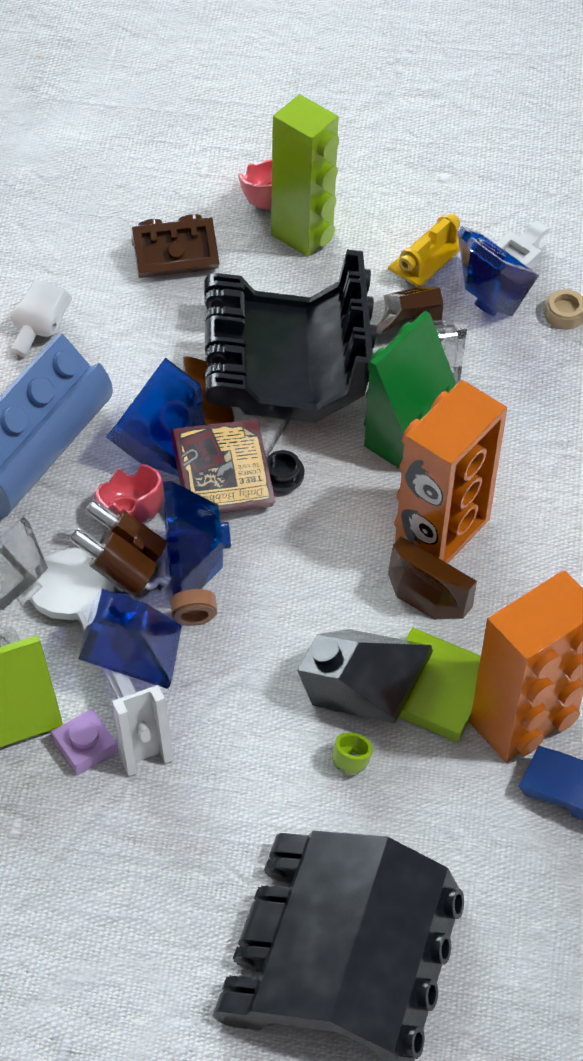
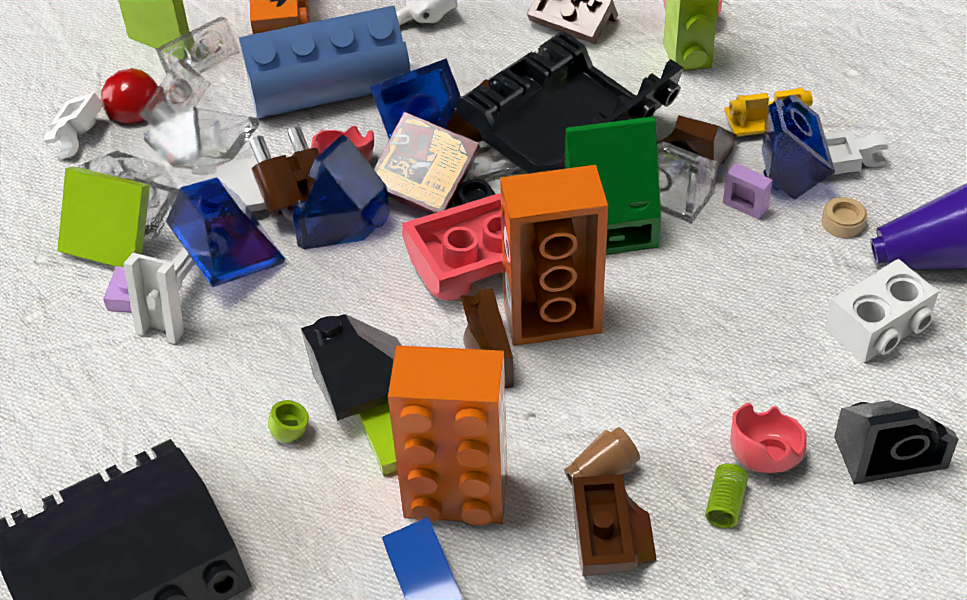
camera: 45 degrees right, 5 degrees down
(193, 606) = (300, 247): nougat tile -> none
(335, 507) = (456, 246): none -> coral slope
(486, 330) = (747, 191): none -> lavender plate

